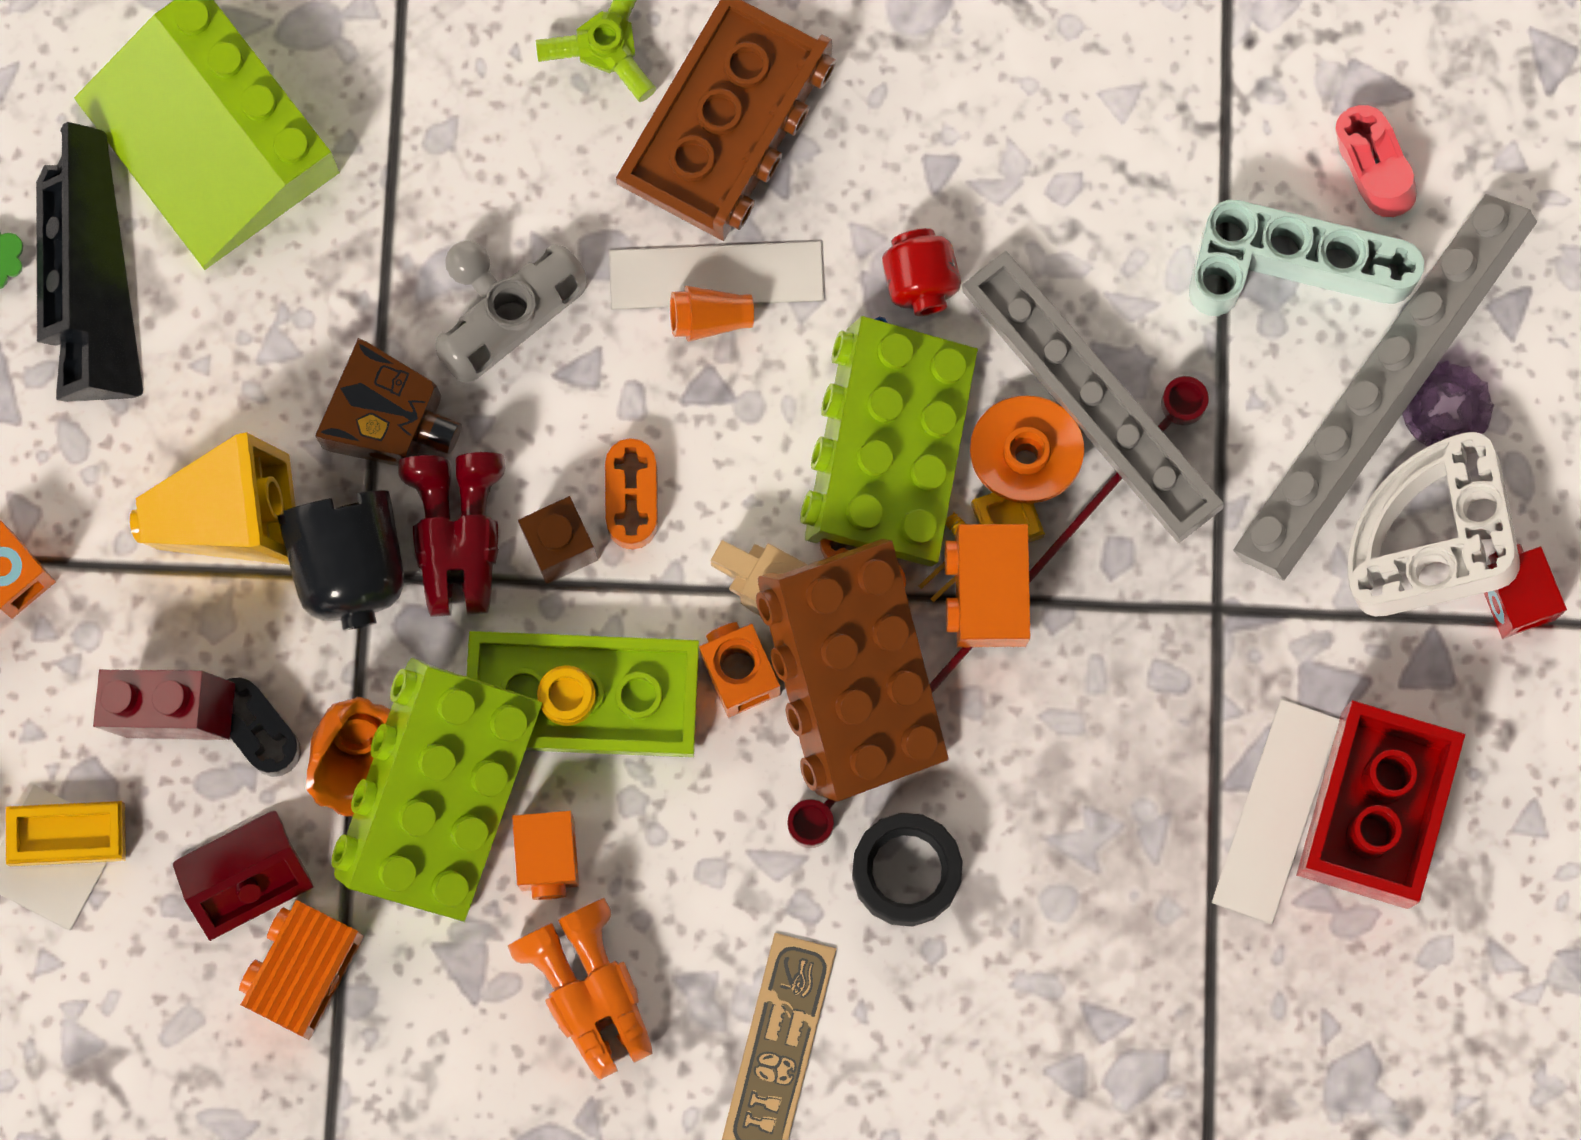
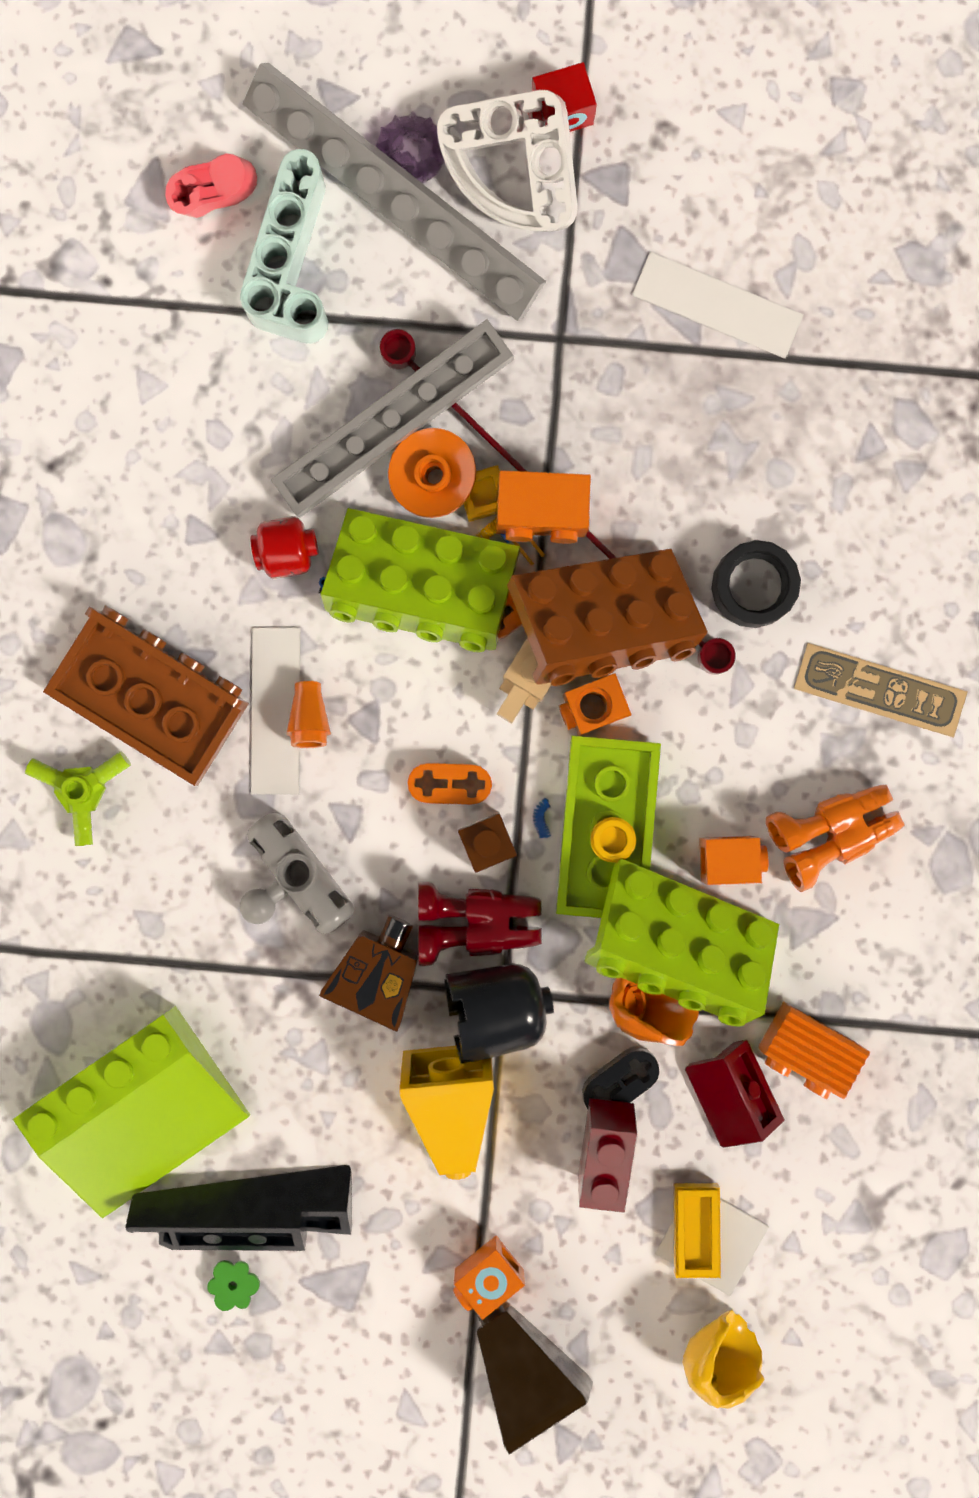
camera: 85 degrees left, 10 degrees up
(593, 611) = (539, 815): none -> blue leg
(1381, 805) = (727, 218): red brick -> none

